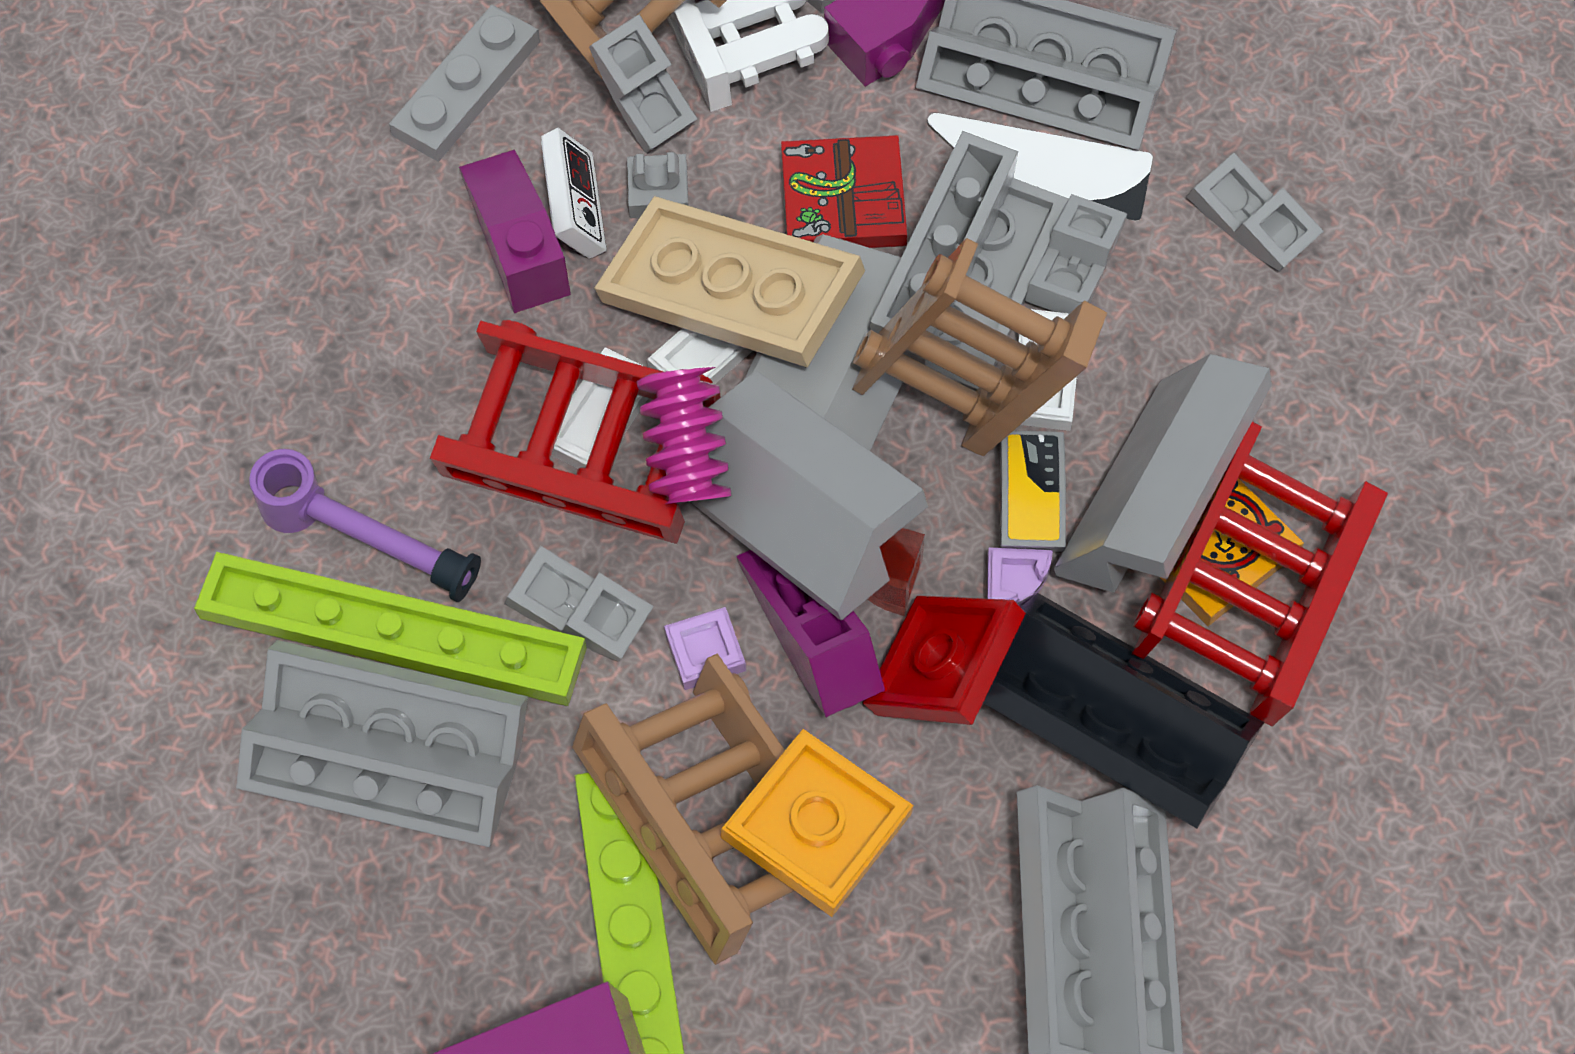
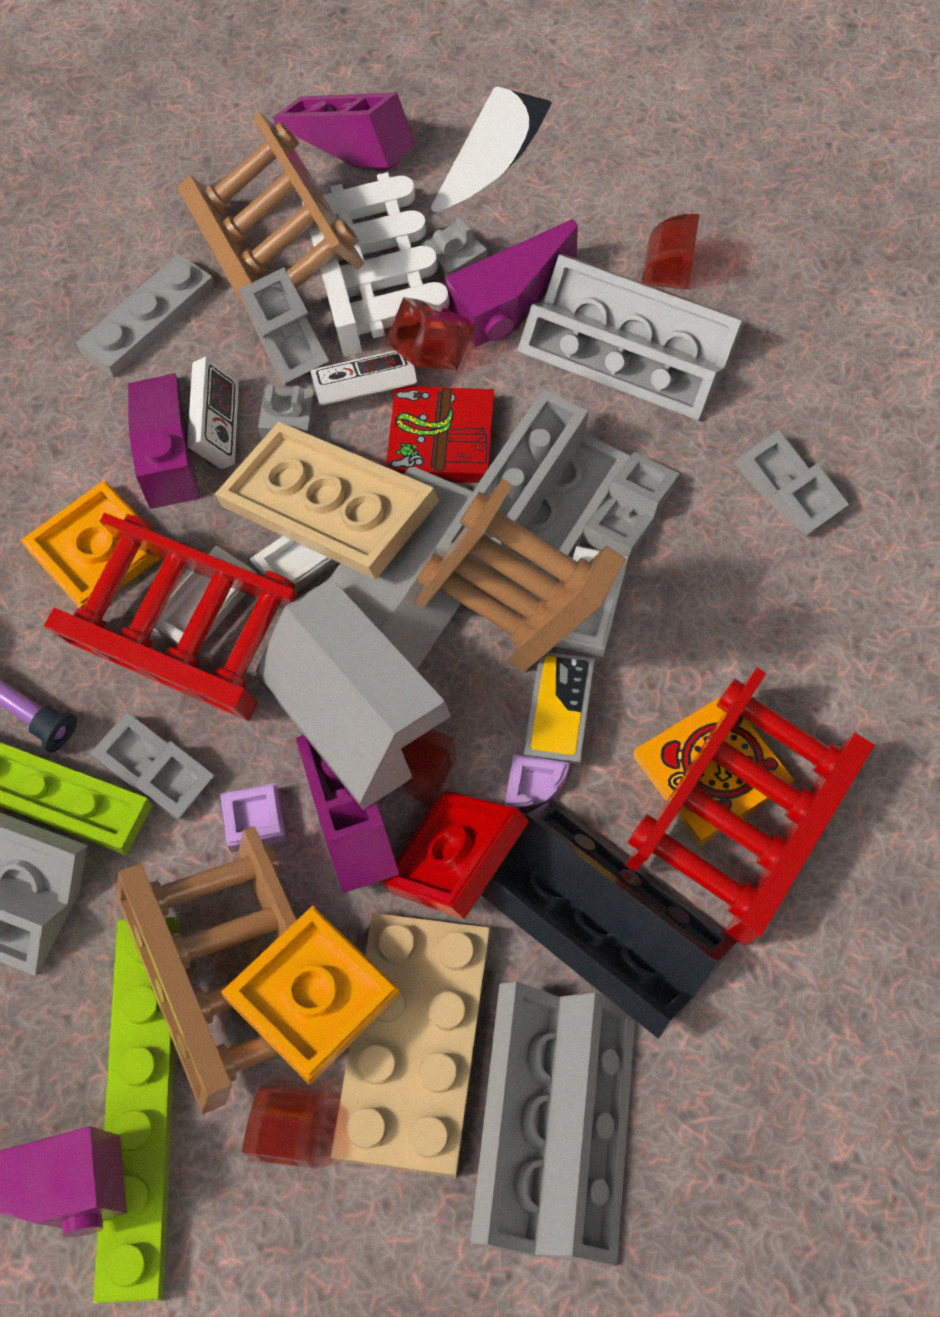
camera: 10 degrees right, 0 degrees up
(444, 363) = (77, 546): none -> light orange tile
(683, 435) = (254, 630): dark pink piece -> none
(742, 134) = (362, 377): none -> white tile
(805, 971) = (284, 1126): none -> clear red brick
(814, 77) = (429, 334): none -> clear red brick
(934, 886) = (414, 1062): none -> tan plate
(1064, 164) = (634, 427): white sticker -> none
(1165, 472) = (676, 706): light grey slope -> none

